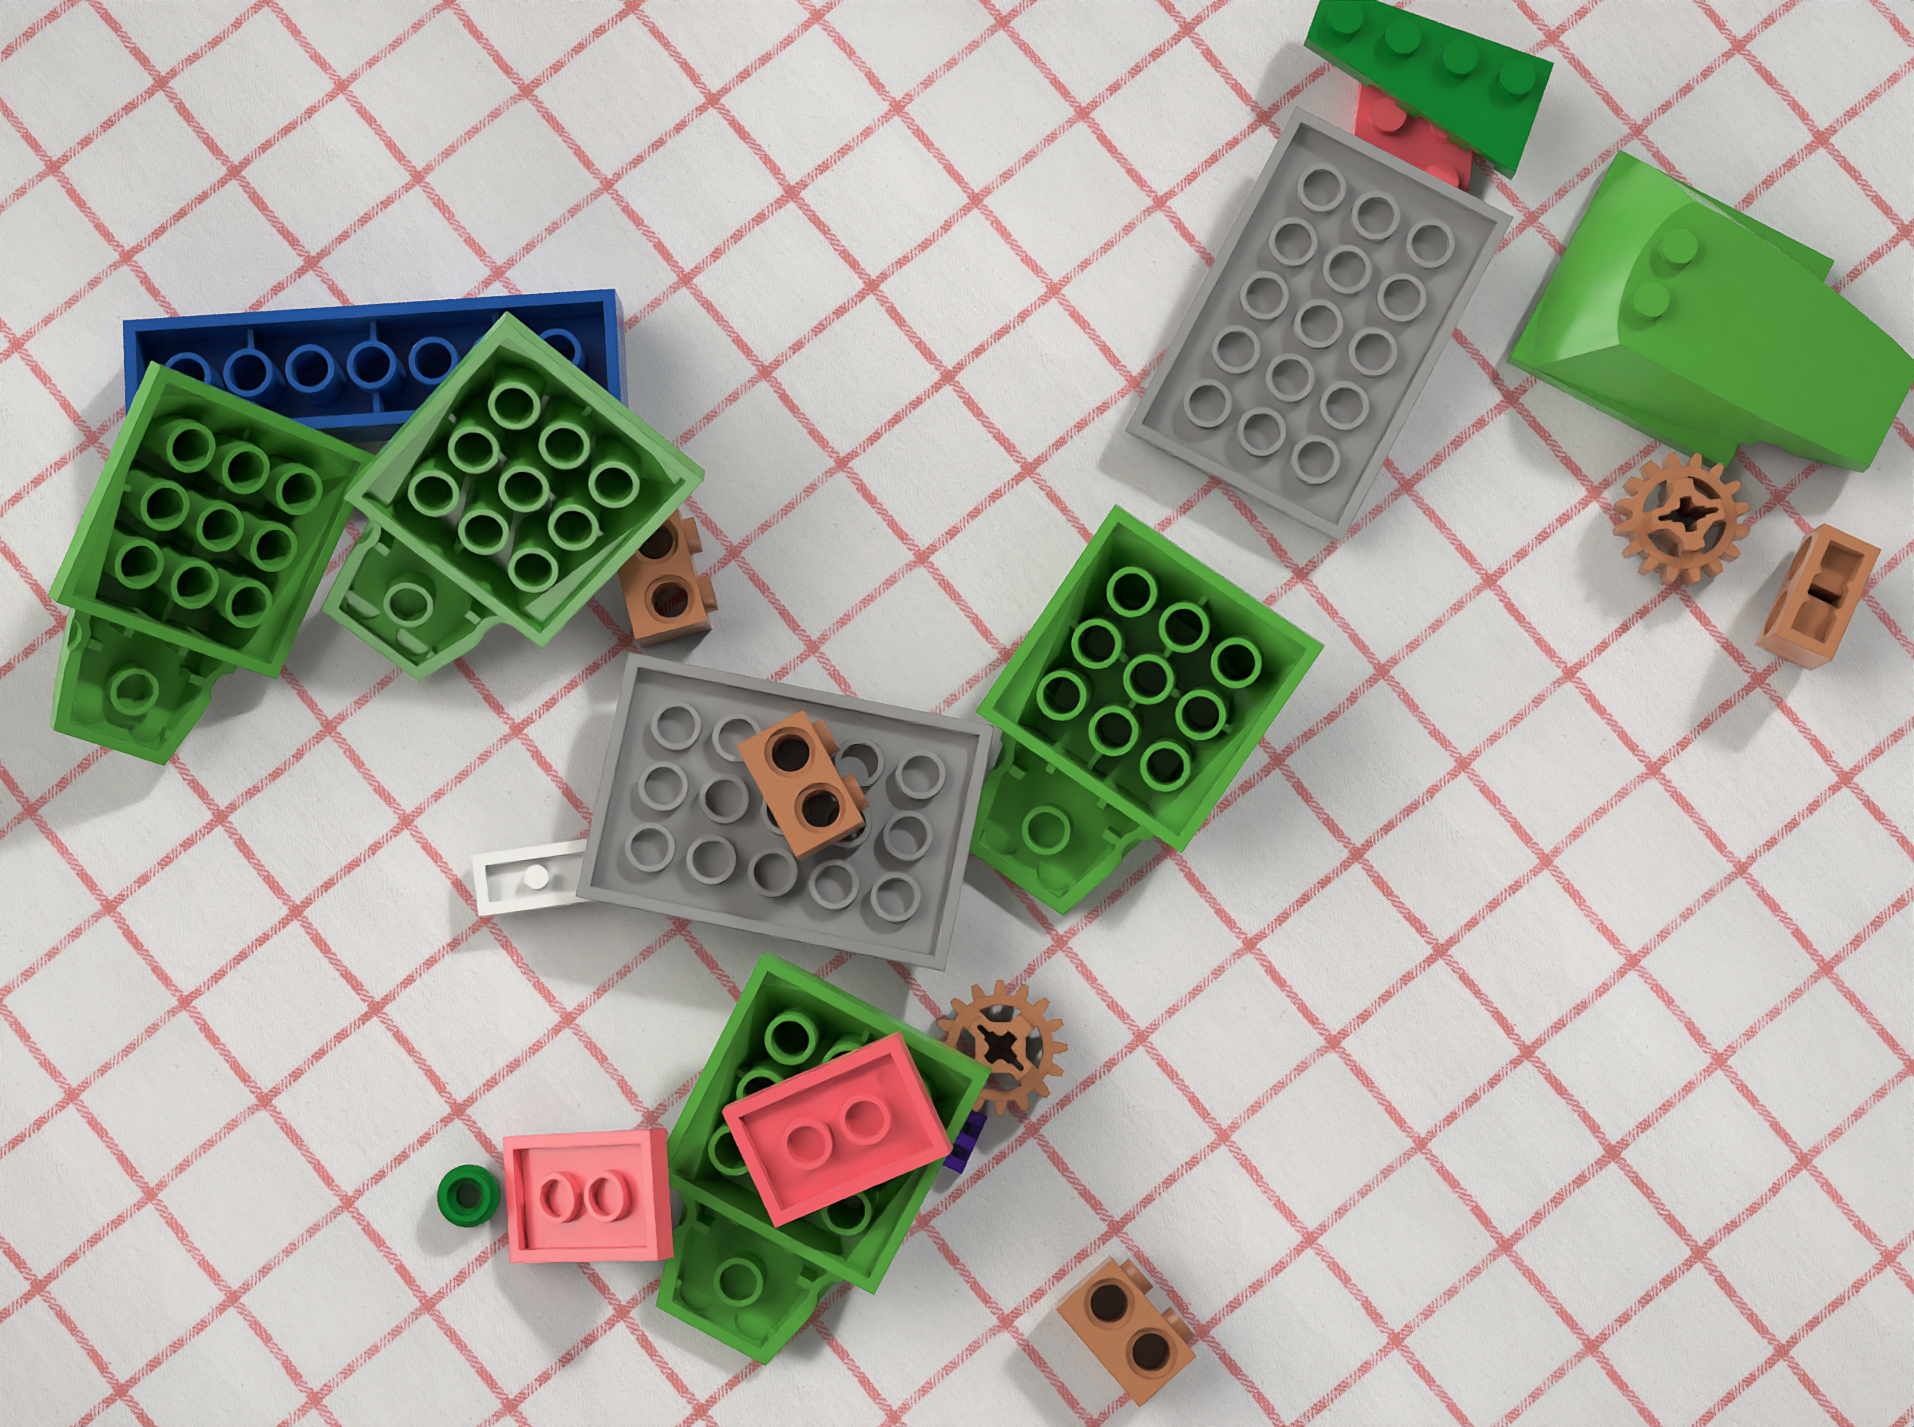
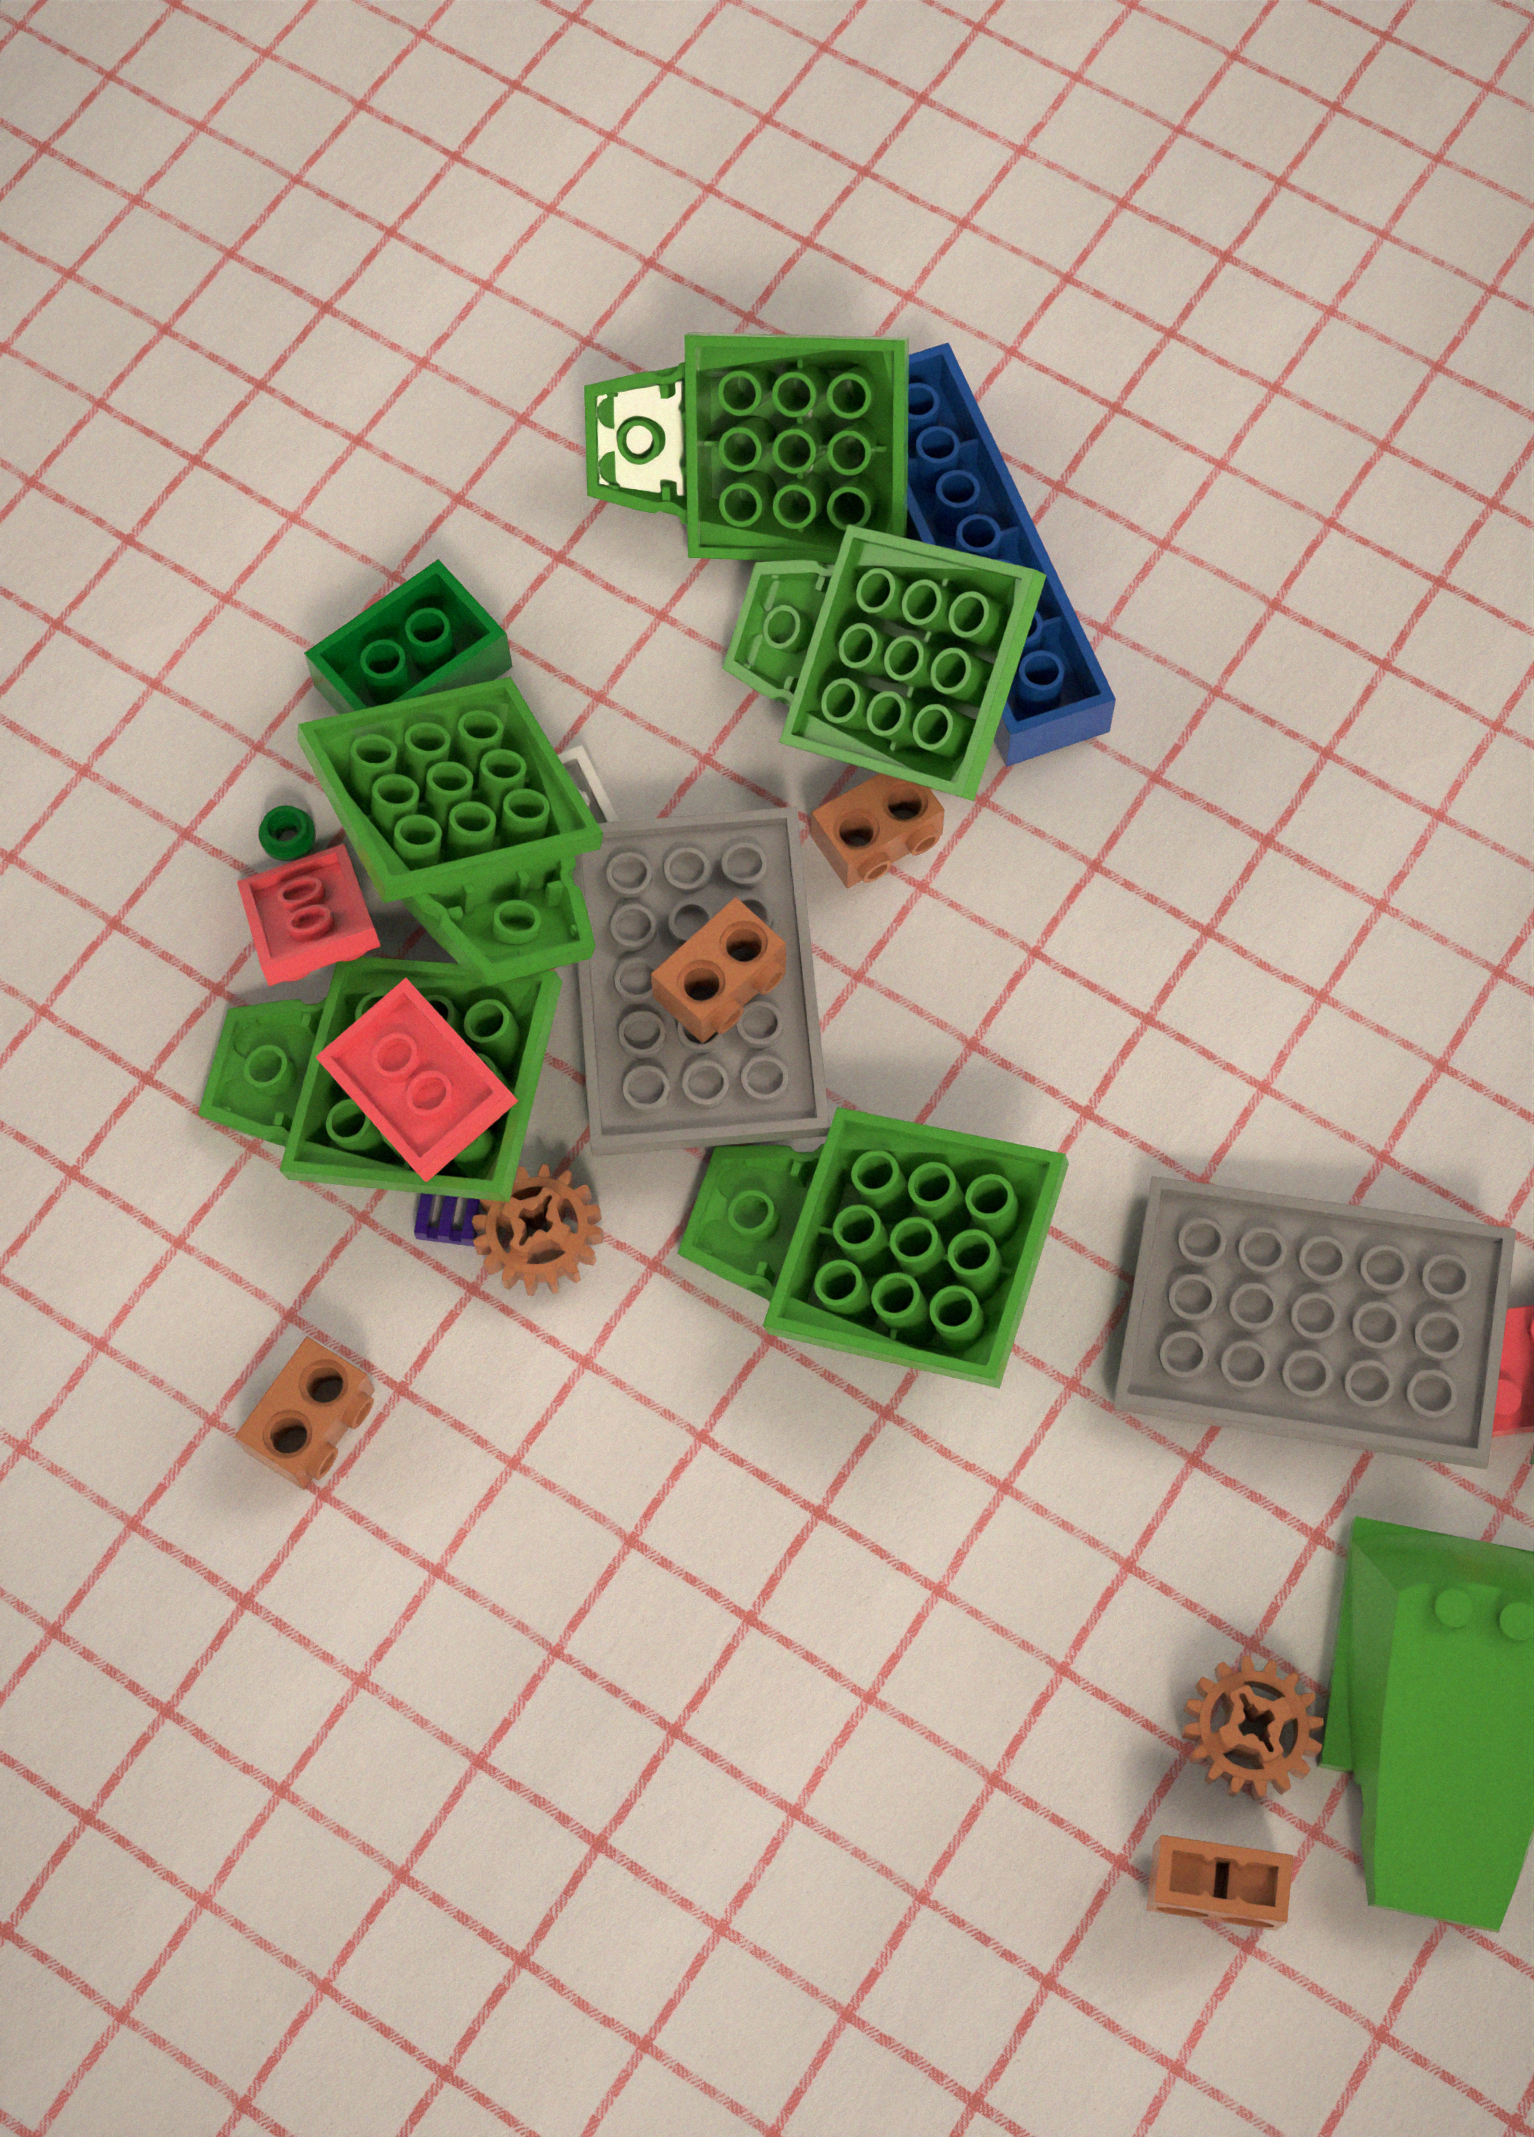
camera: 75 degrees right, 15 degrees down
(311, 1012) = (410, 645): none -> green brick
(550, 1004) = (464, 823): none -> bright green wedge

